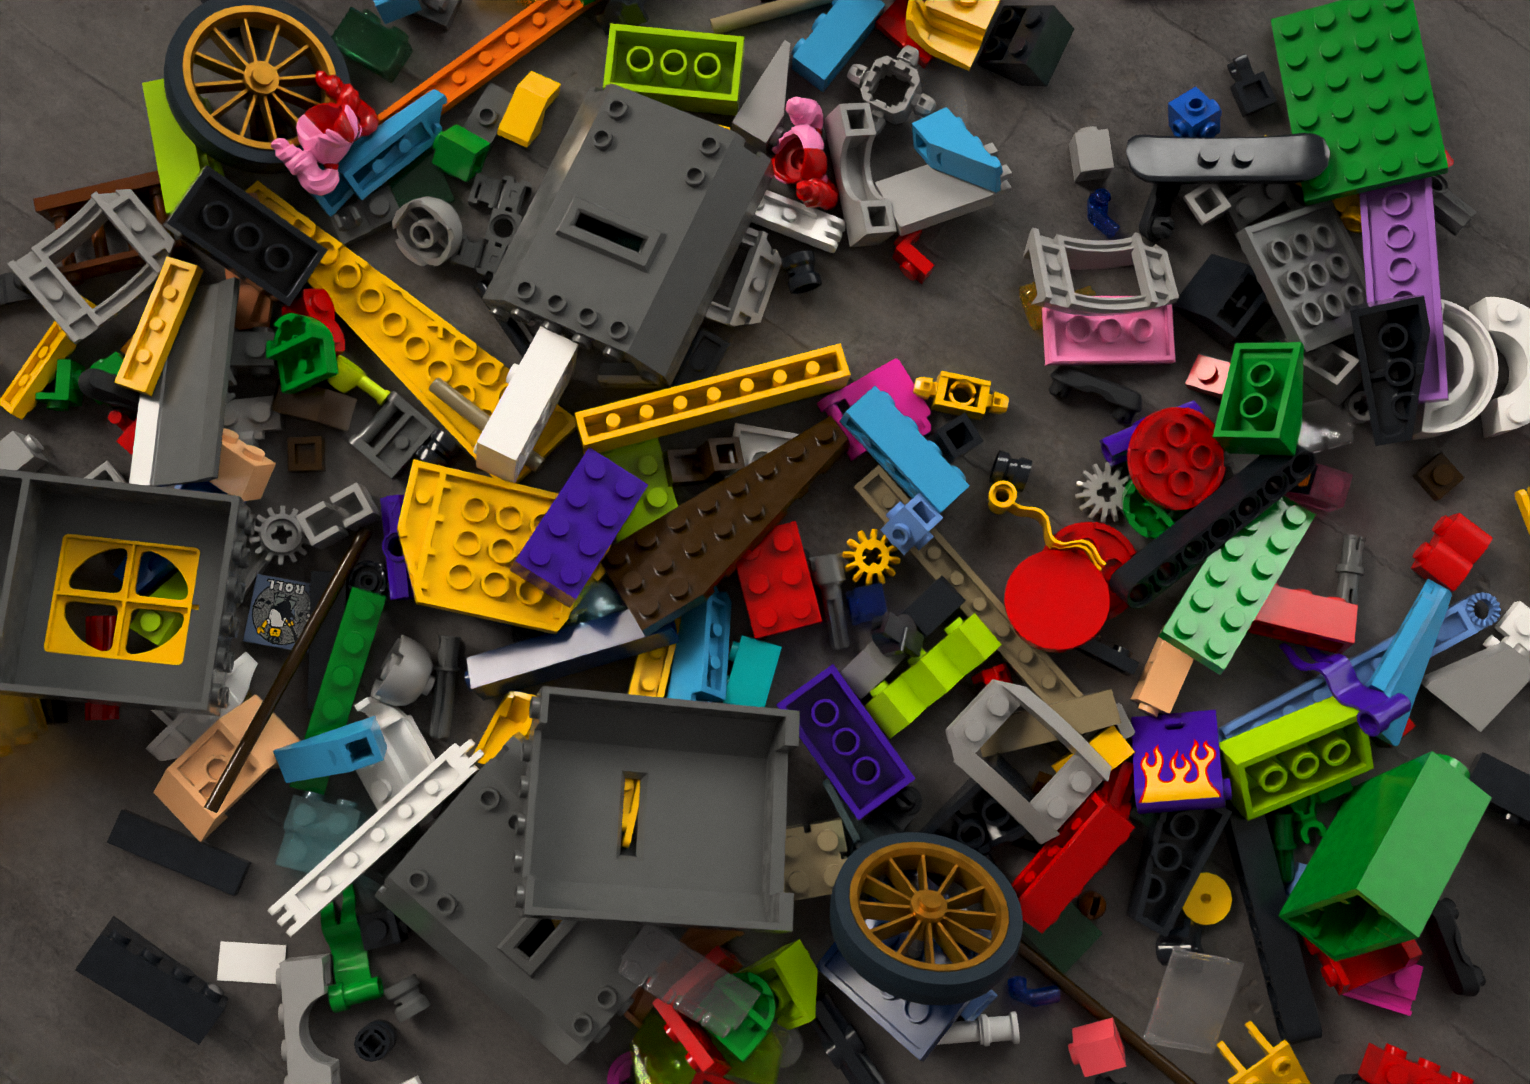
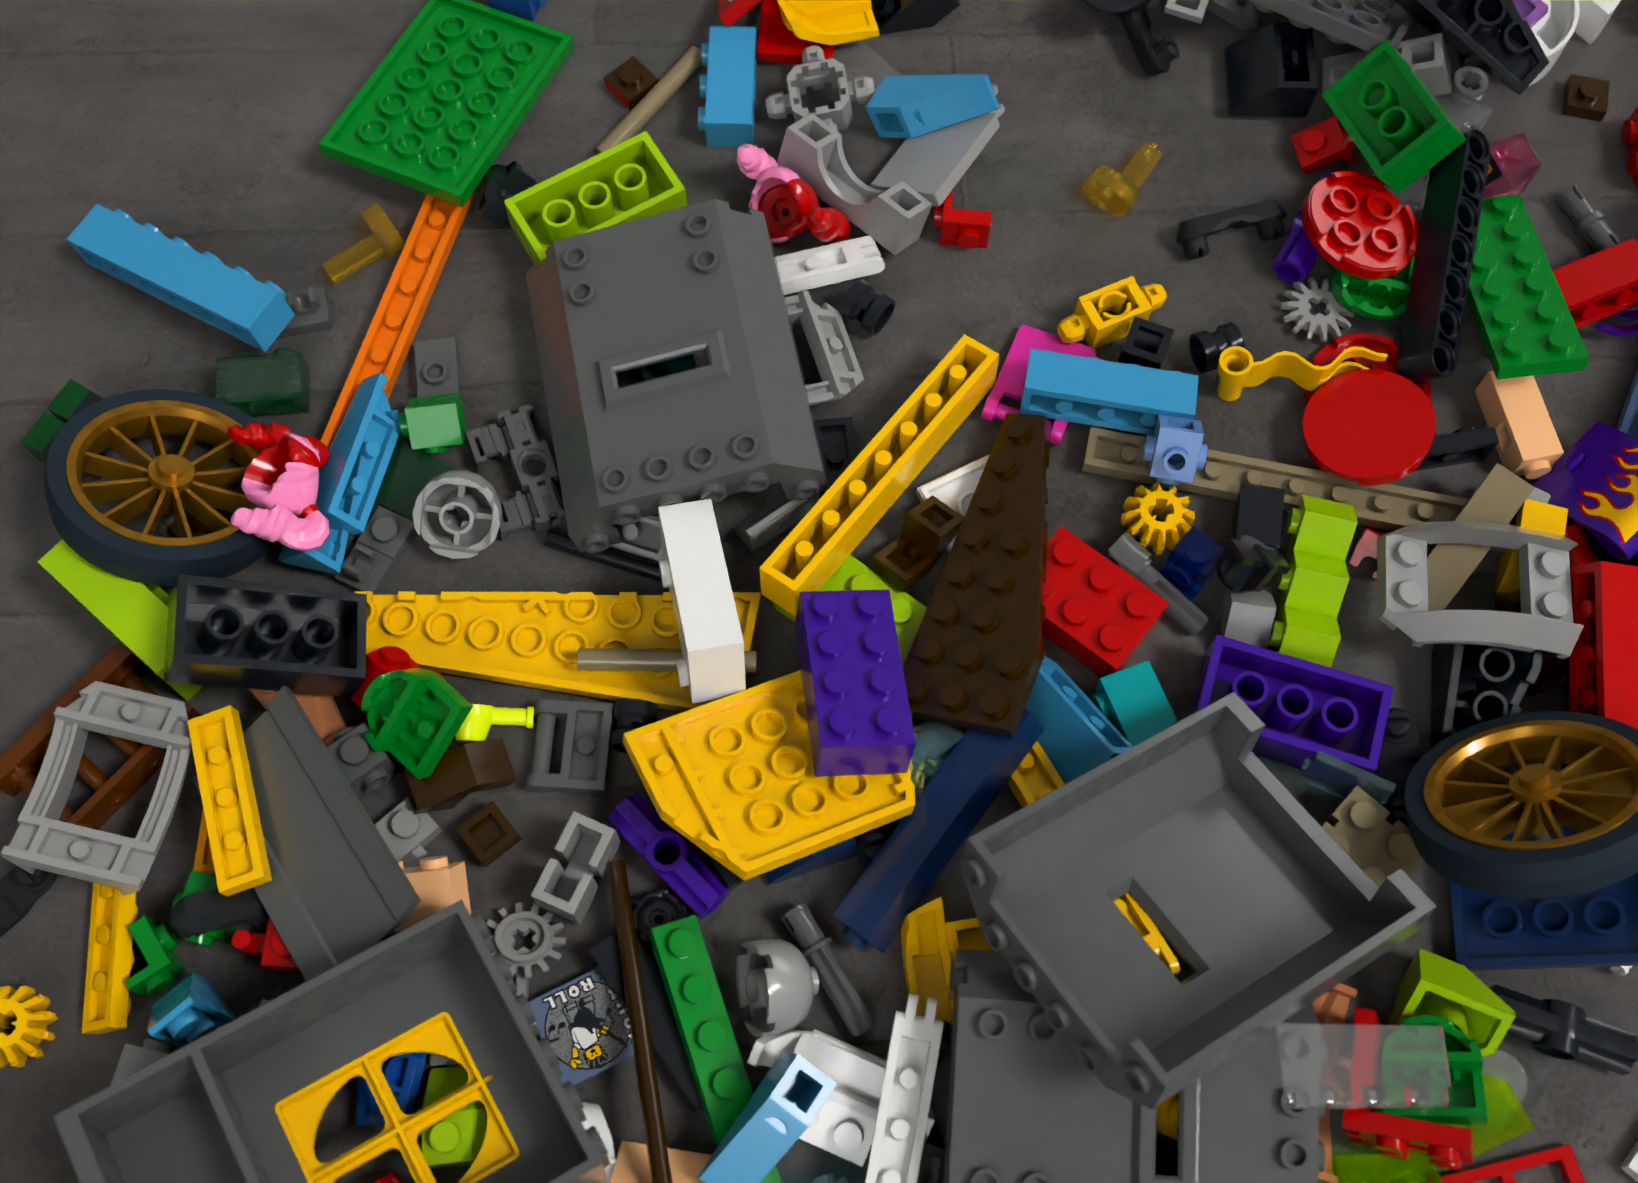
camera: 35 degrees left, 15 degrees down
(59, 441) = (189, 1012): none -> dark azure slope
(527, 109) = (474, 339): yellow slope -> none
(762, 114) = (709, 171): light grey slope -> none
(1054, 285) = (1109, 130): light grey wedge -> none
(1091, 154) = (1048, 36): light grey brick -> none
(1098, 213) = (1096, 82): clear blue arm -> none
(1109, 340) = (1195, 166): bright pink plate -> none

